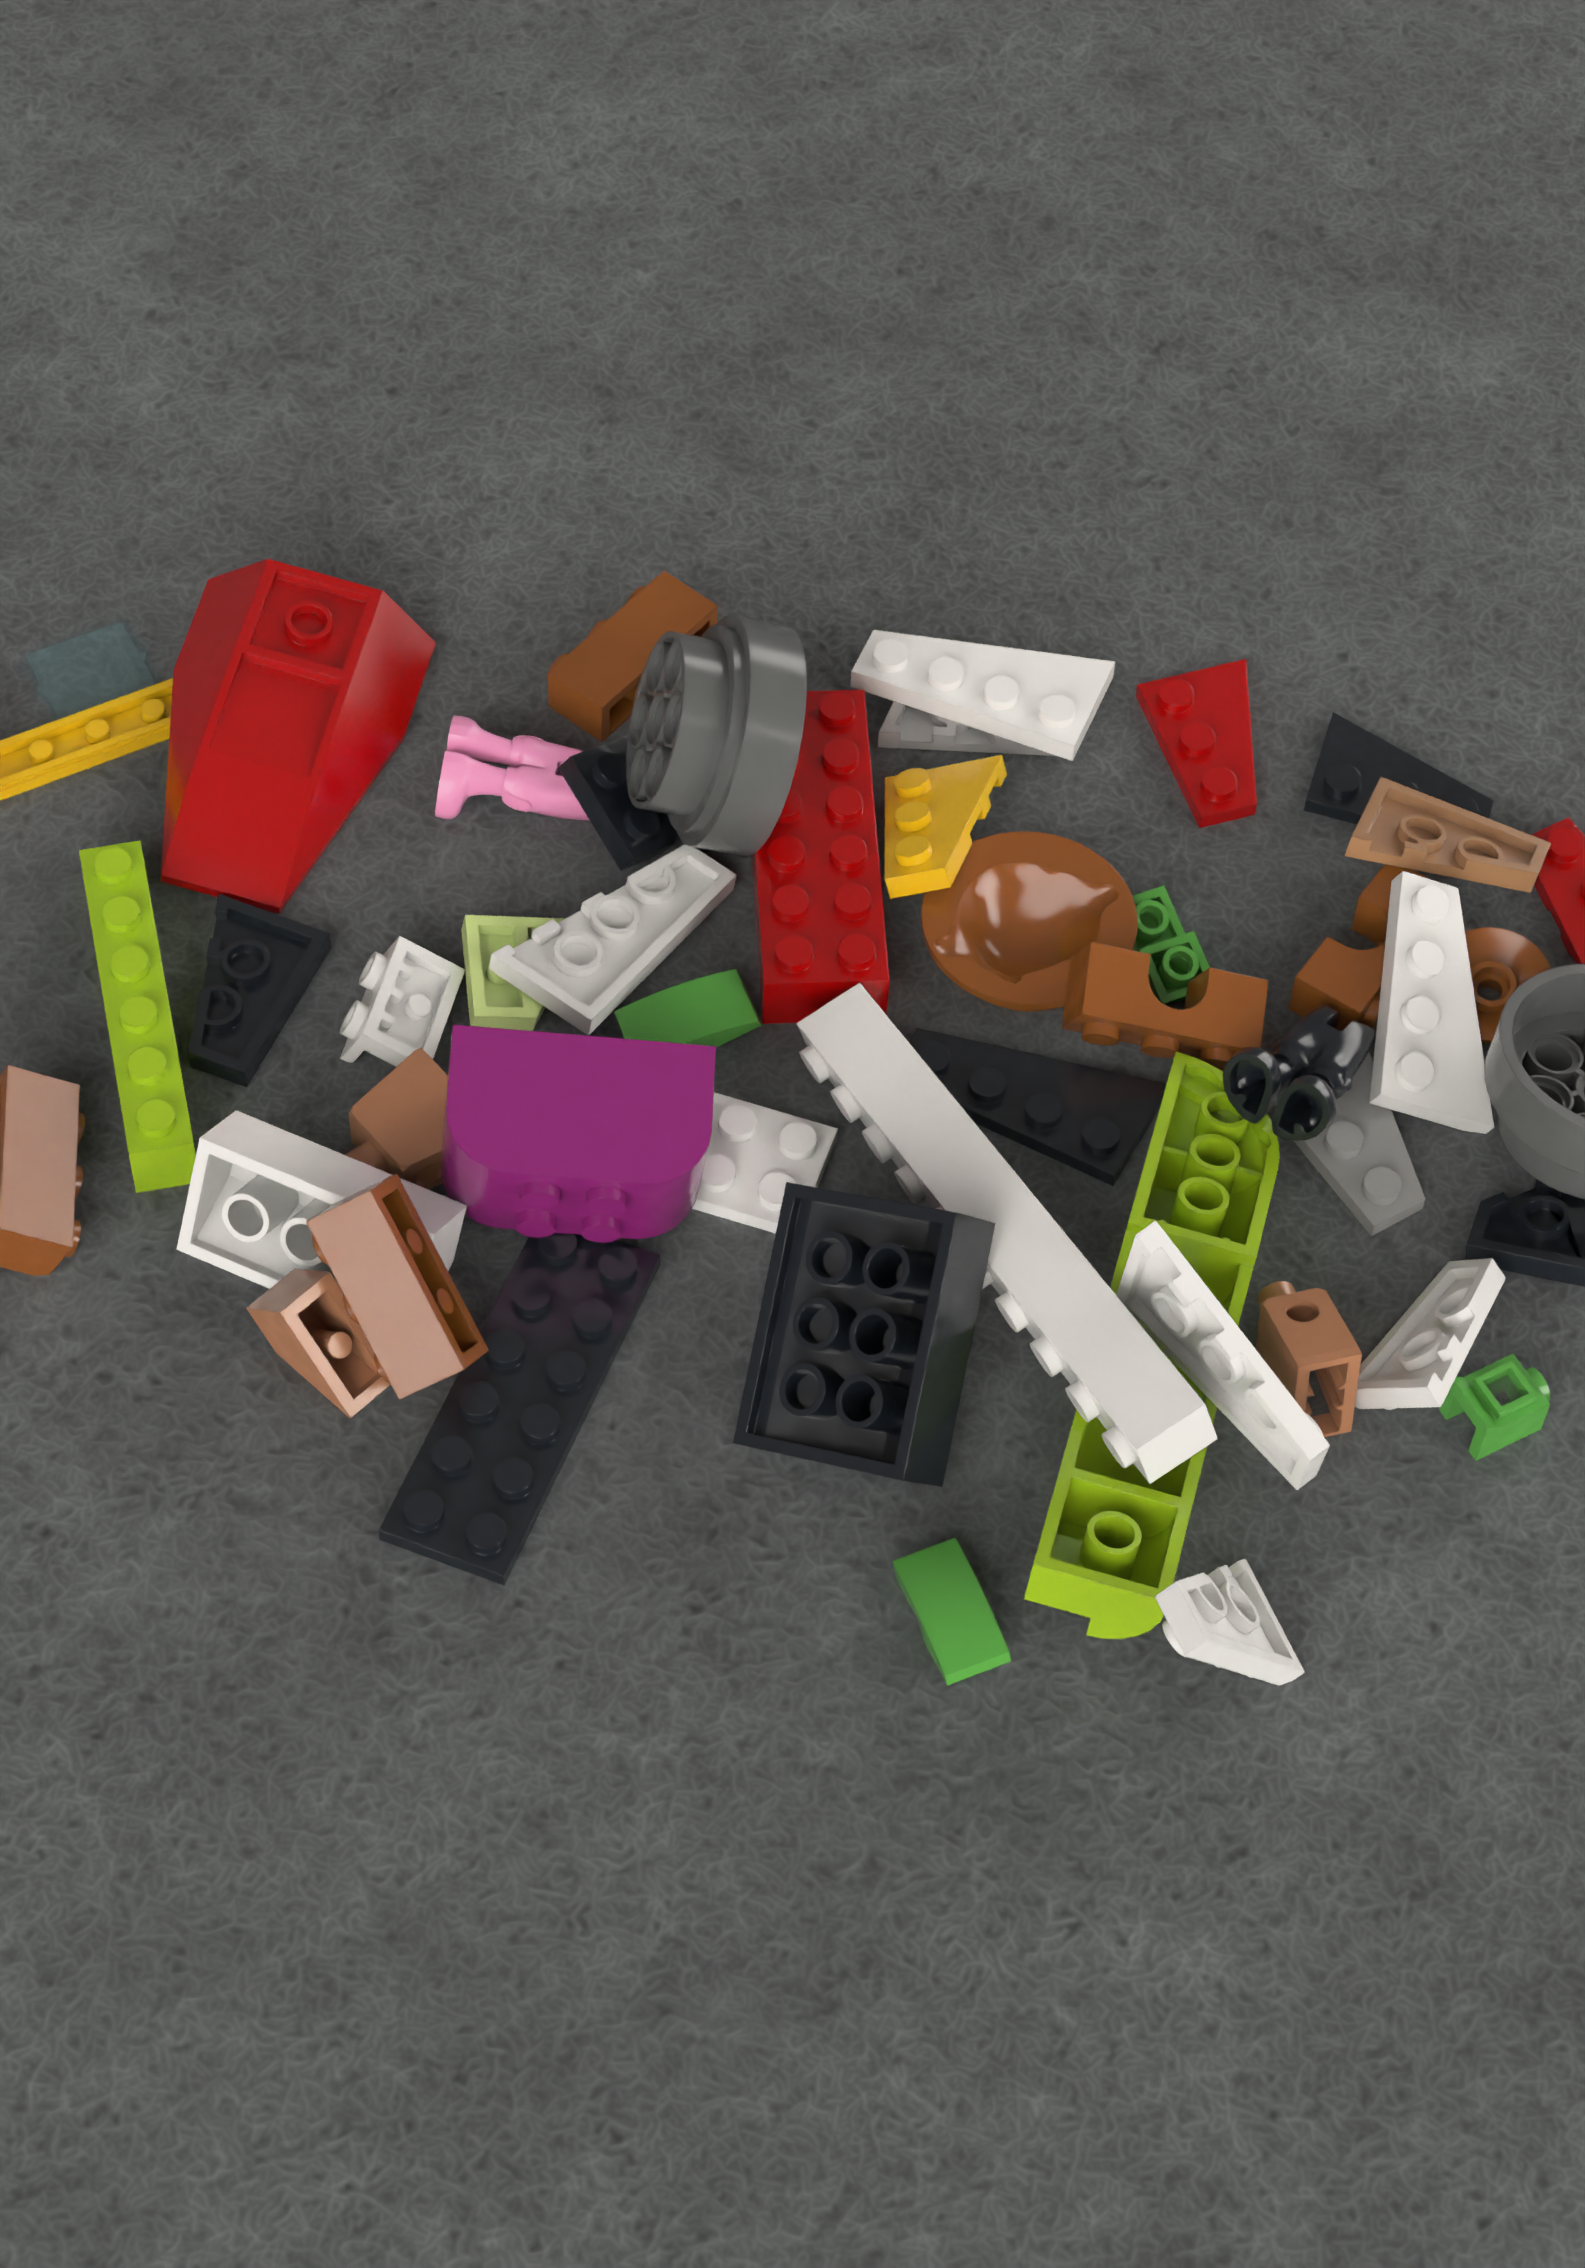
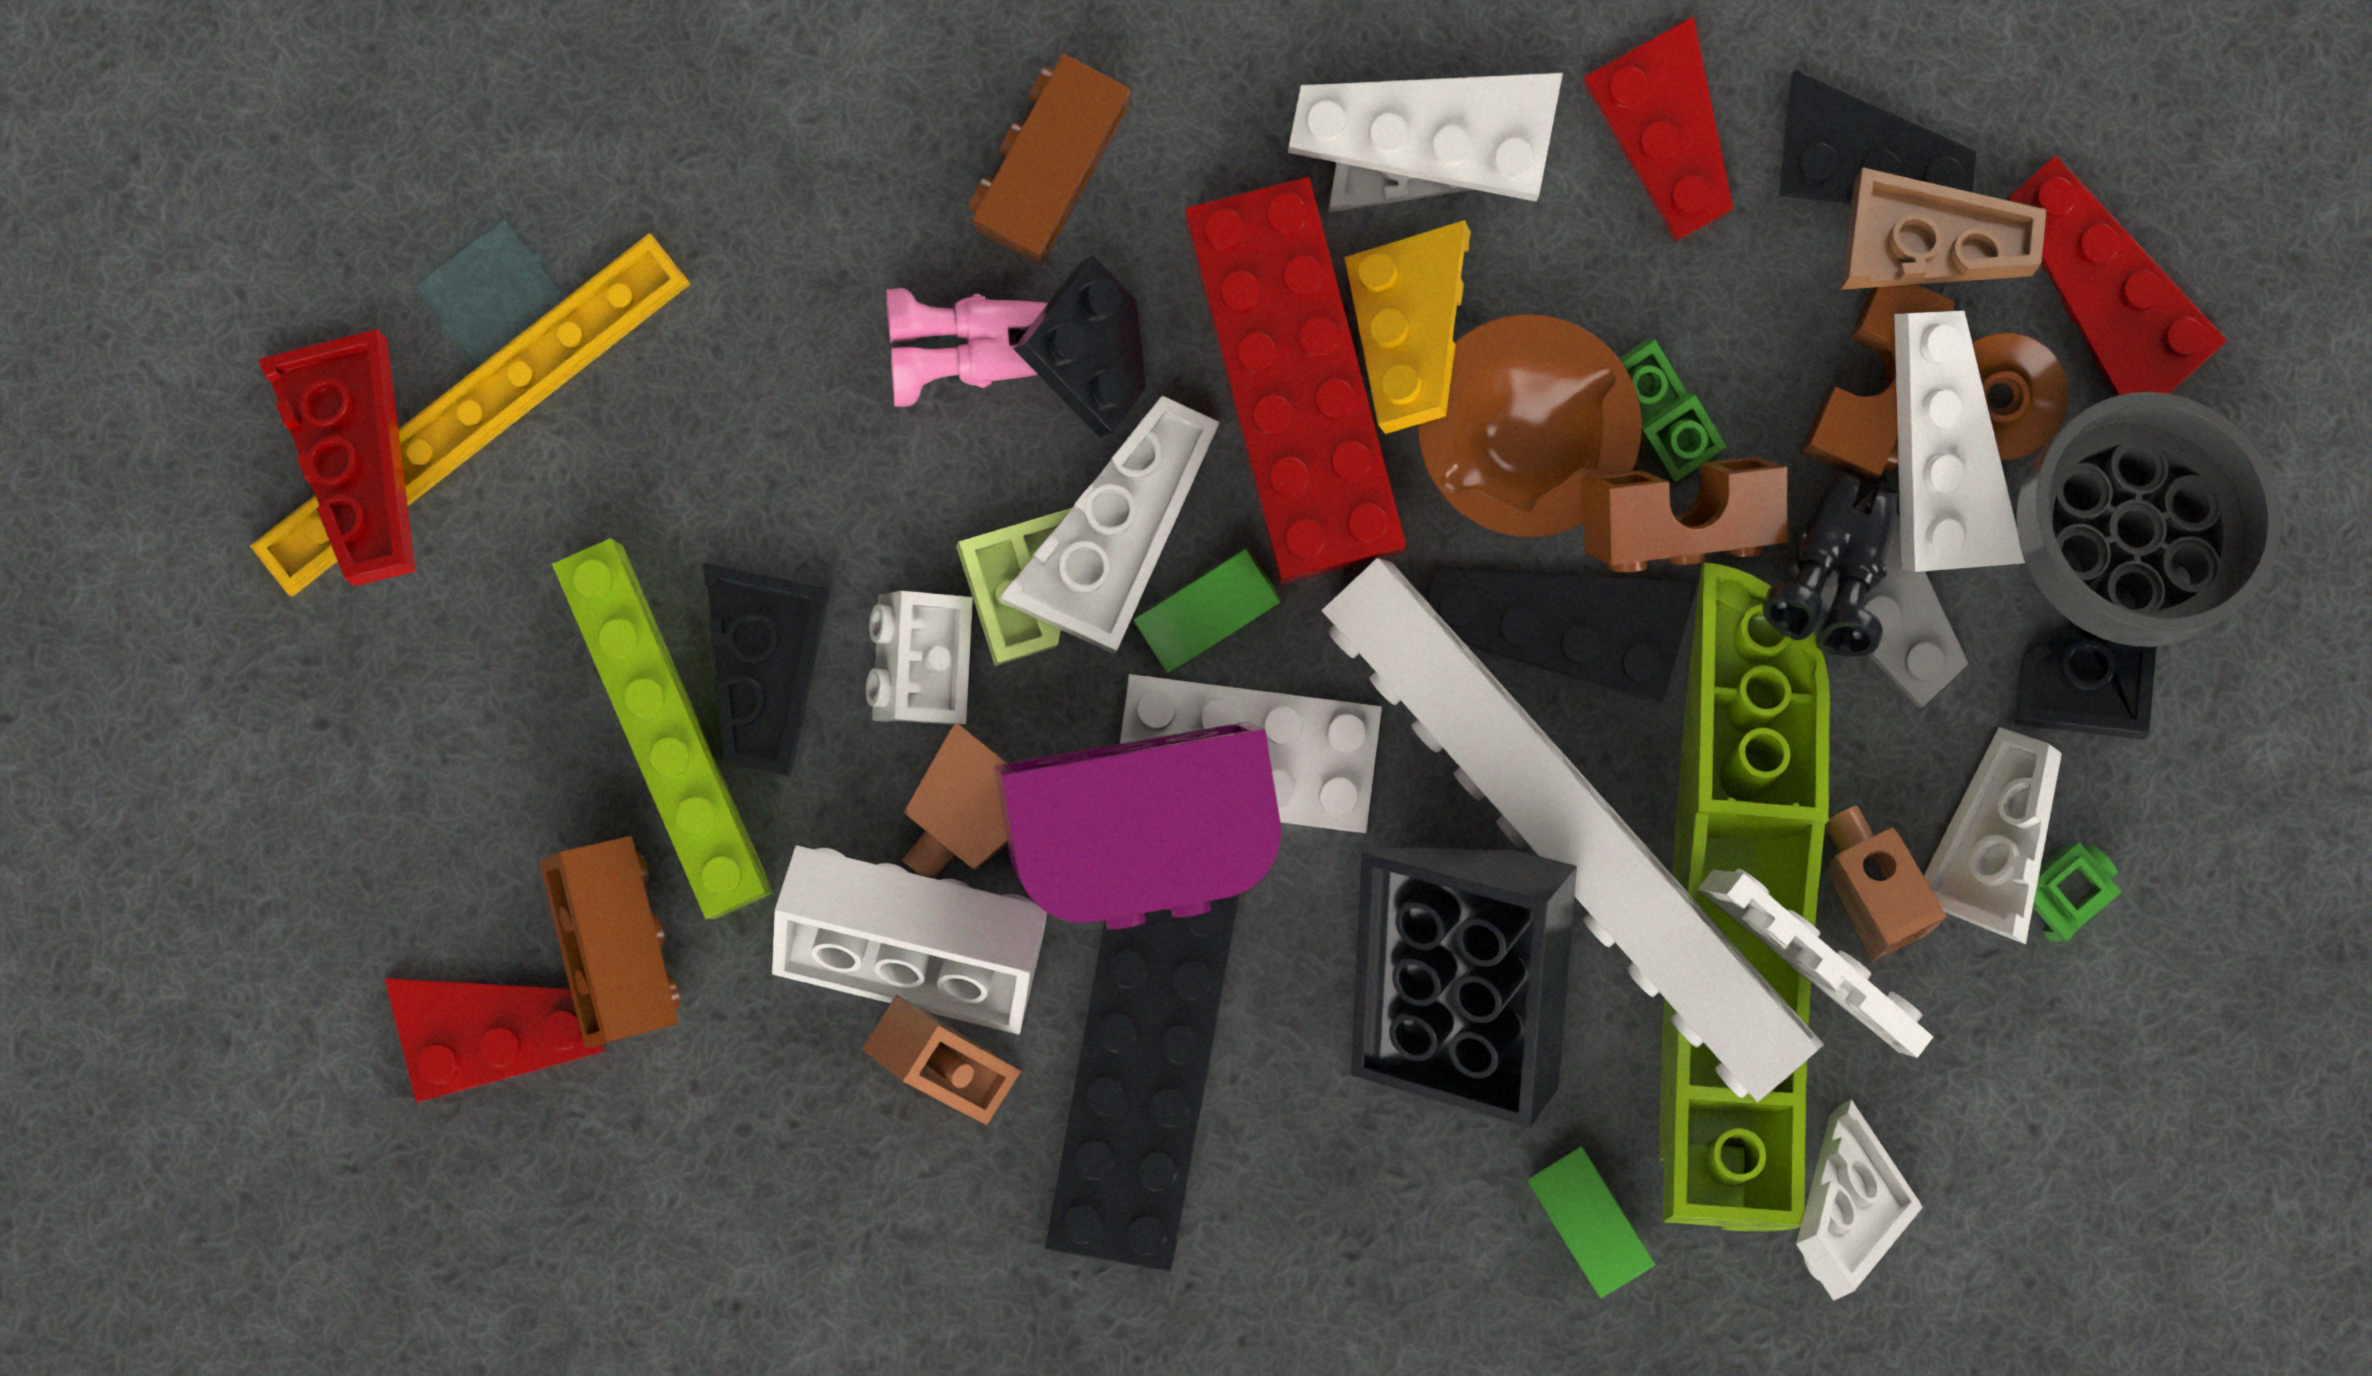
camera: 10 degrees left, 30 degrees up
(281, 725) = (708, 340): red wedge -> none
(396, 1287) = (1006, 1025): brick -> none
(719, 732) = (1180, 304): dark grey wheel -> none

